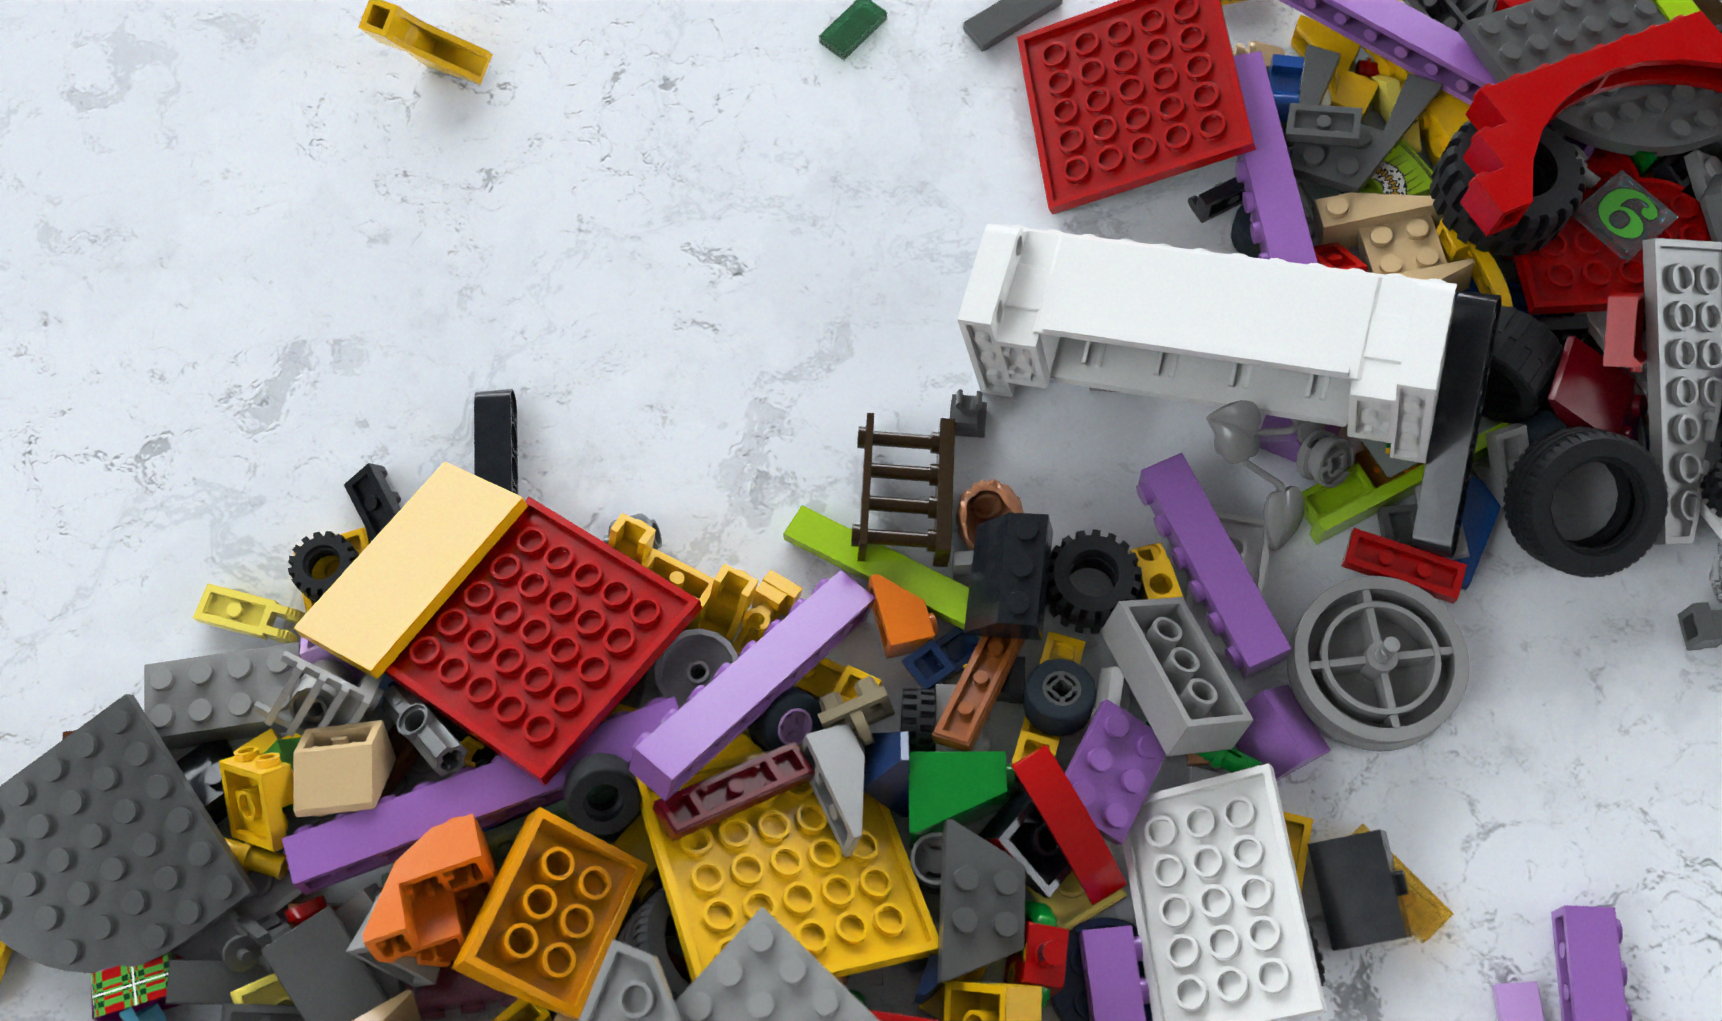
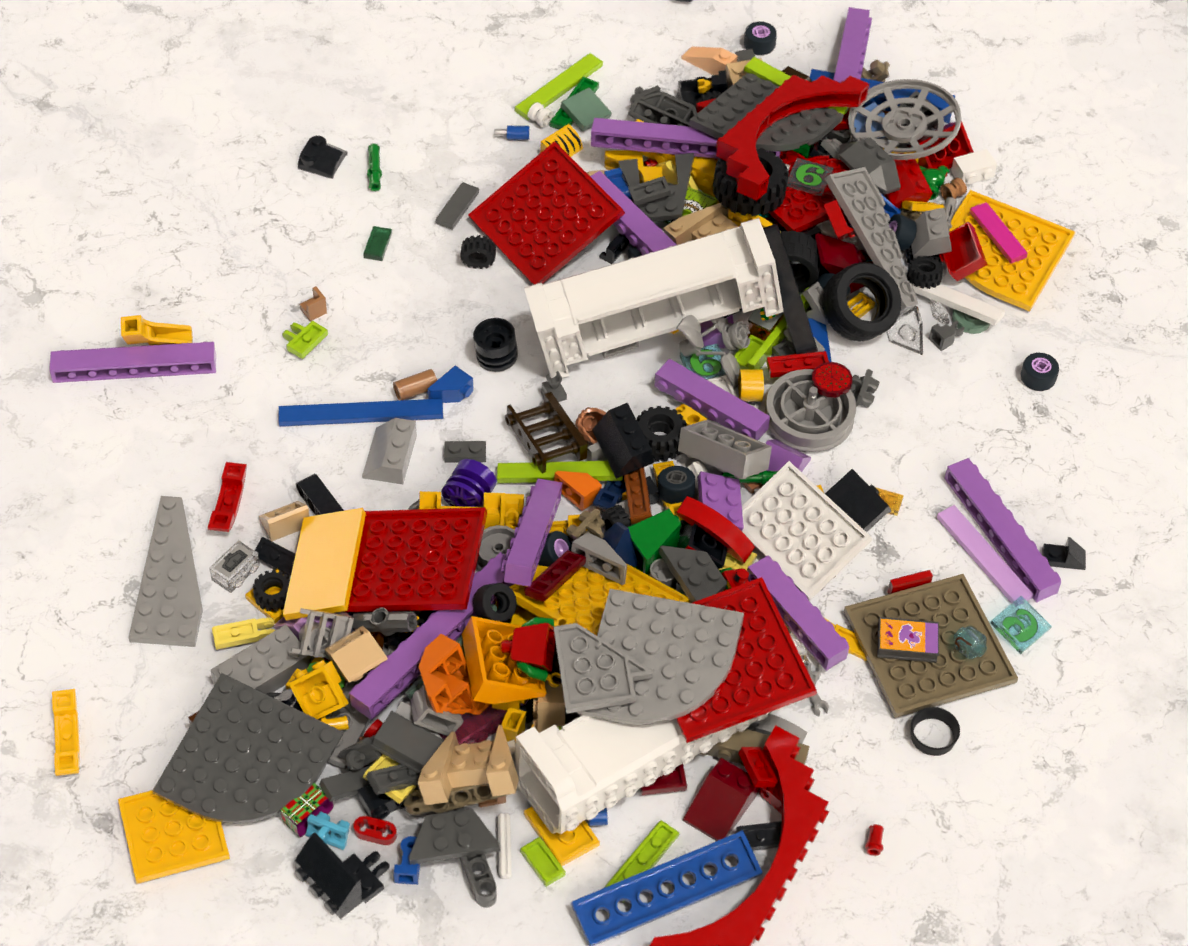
camera: 35 degrees left, 15 degrees down
(188, 496) = (169, 594): none -> light grey wing
(304, 493) = (234, 566): none -> clear brick
(370, 372) = (229, 497): none -> red slope
(380, 74) = (133, 362): none -> medium lavender brick
(425, 445) = (284, 520): none -> tan slope
(584, 925) = (534, 648): none -> red torso
(645, 147) = (306, 338): none -> lime hinge
(653, 405) = (391, 451): none -> light grey slope
(654, 312) = (360, 412): none -> blue tile
(691, 96) = (315, 306): none -> medium nougat panel
(722, 532) = (468, 484): none -> dark purple wheel
(758, 303) = (414, 384): none -> medium nougat pin
(767, 457) = (459, 450): none -> dark grey plate
(809, 333) = (452, 386): none -> blue slope
(917, 290) = (495, 344): none -> black wheel
(989, 111) = (470, 252): none -> black tyre
(1241, 490) = (704, 365): none -> tile
(1298, 565) = (751, 385): none -> yellow piece
(1444, 629) = (832, 379): none -> tile
(1492, 657) = (861, 385): none -> dark grey hips
(1574, 510) = (862, 308): none -> yellow tile
(1646, 590) = (908, 331): none -> clear slope

